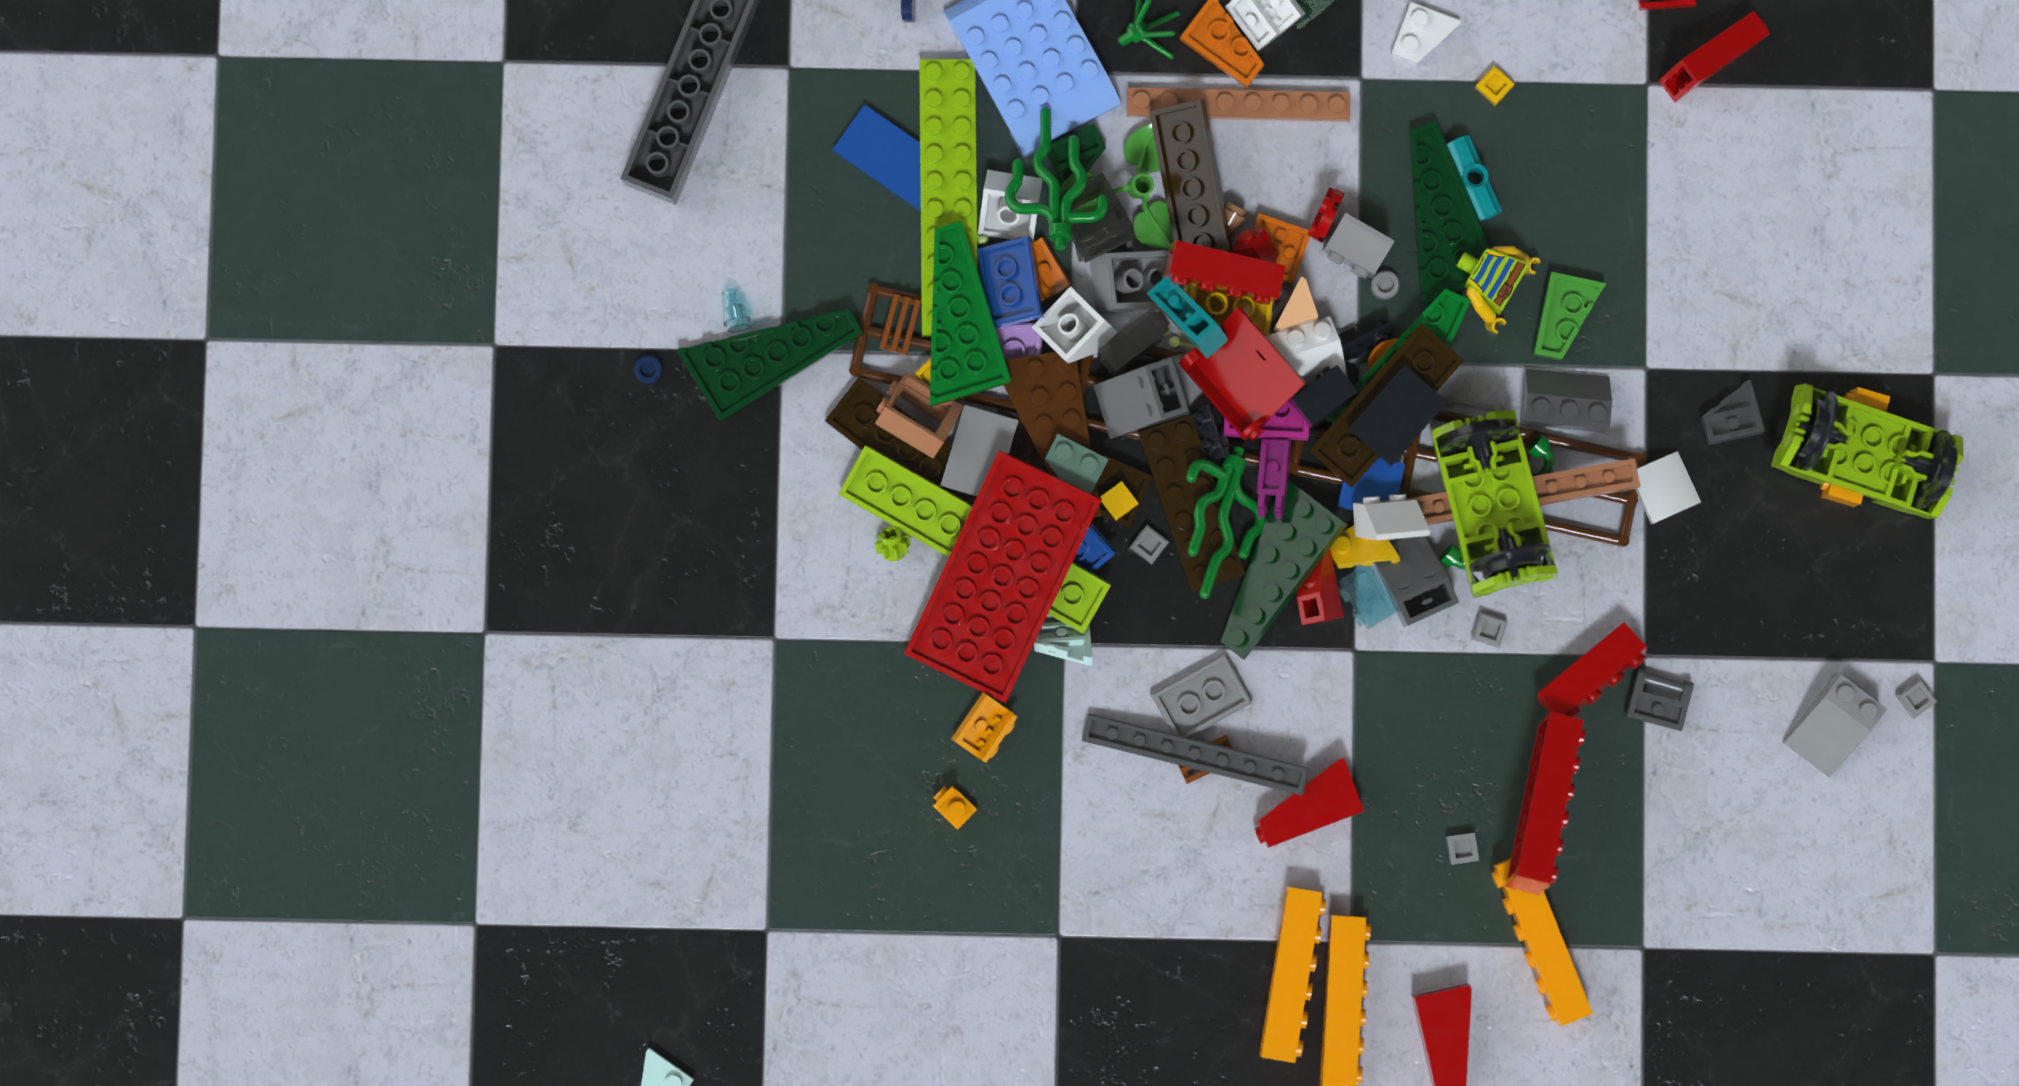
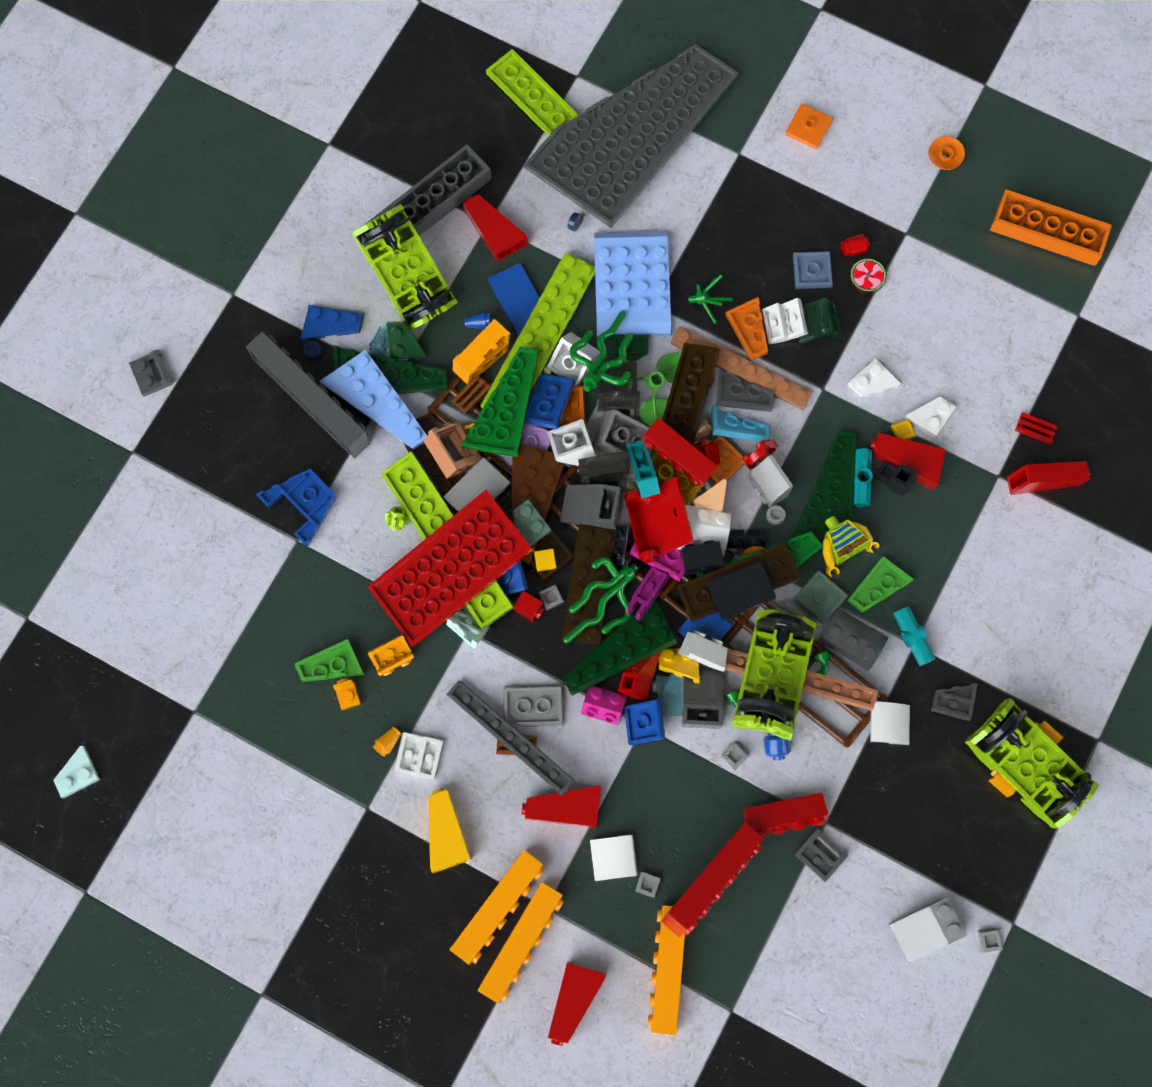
camera: 30 degrees right, 10 degrees down
(442, 520) = (145, 375): none -> dark grey plate
(650, 318) = (329, 321): none -> blue wing
(683, 437) = (308, 394): none -> dark grey brick
(721, 198) = (404, 267): none -> lime piece
(756, 572) = (308, 495): none -> blue wing
(765, 392) = (369, 392): none -> light blue wing
(769, 298) = (402, 341): none -> dark green wing
(803, 73) = (494, 228): none -> red slope
(855, 215) = (479, 321): none -> blue cone
(885, 261) = (482, 352): none -> light orange wedge
(910, 778) = (330, 663): none -> bright green wing
(1039, 840) = (387, 741): none -> light orange cone
(1088, 837) = (418, 756): none -> white slope
(1129, 572) = (529, 606): none -> red brick
(1180, 920) = (445, 833): none -> yellow slope
(1255, 143) = (739, 394): none -> dark grey wing
(1271, 193) = (731, 426): none -> medium azure wing
(1291, 650) = (603, 705): none -> dark pink bracket
(1356, 647) = (644, 722): none -> blue tile
(1403, 837) = (613, 857): none -> white slope
(1496, 366) = (820, 597): none -> sand green tile
(1523, 45) = (931, 416): none -> white wing
(1523, 157) = (898, 478): none -> black brick
(1526, 119) = (919, 457): none -> red slope
(1538, 594) = (776, 747): none -> blue head
(1641, 358) = (914, 636): none -> teal piece

